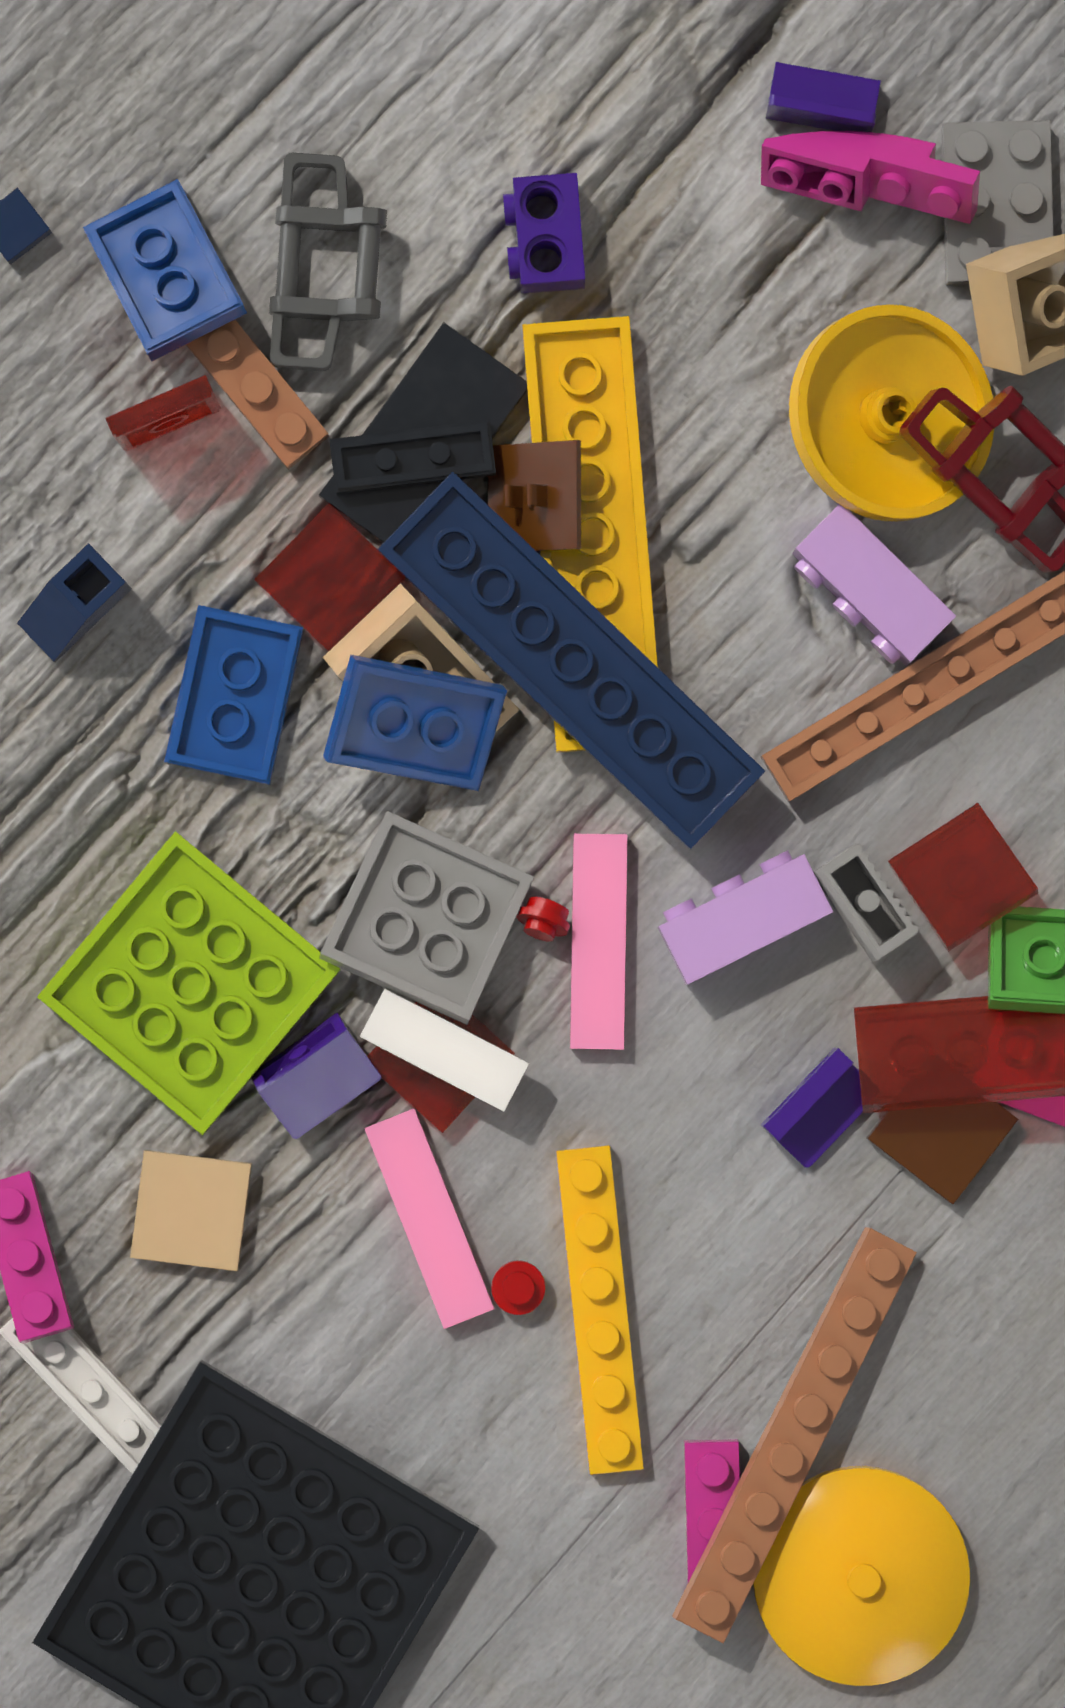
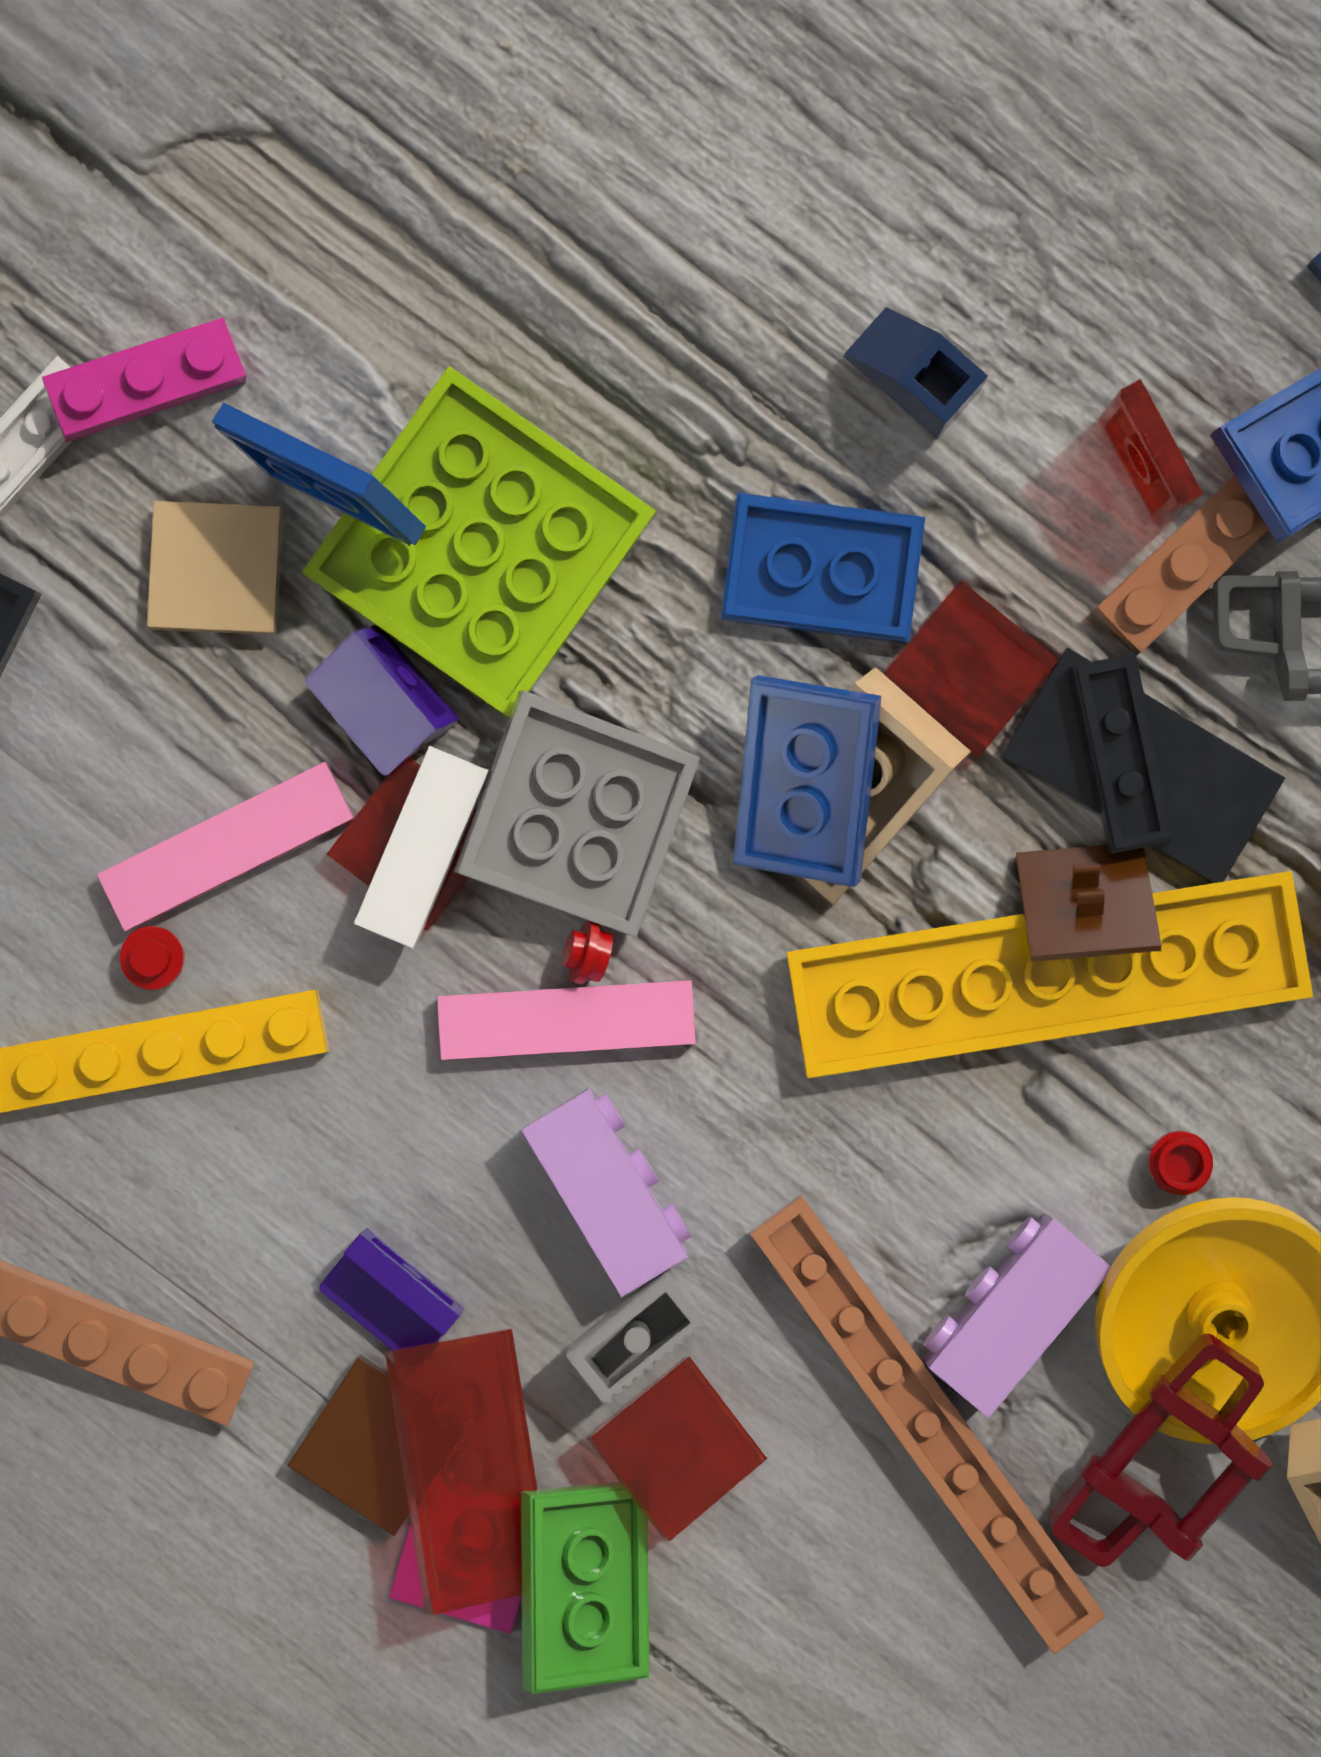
camera: 85 degrees right, 0 degrees up
(126, 1109) = (319, 474): none -> blue tile
(571, 660) = (896, 961): dark blue plate -> none
(758, 437) = (1180, 1162): none -> red plate

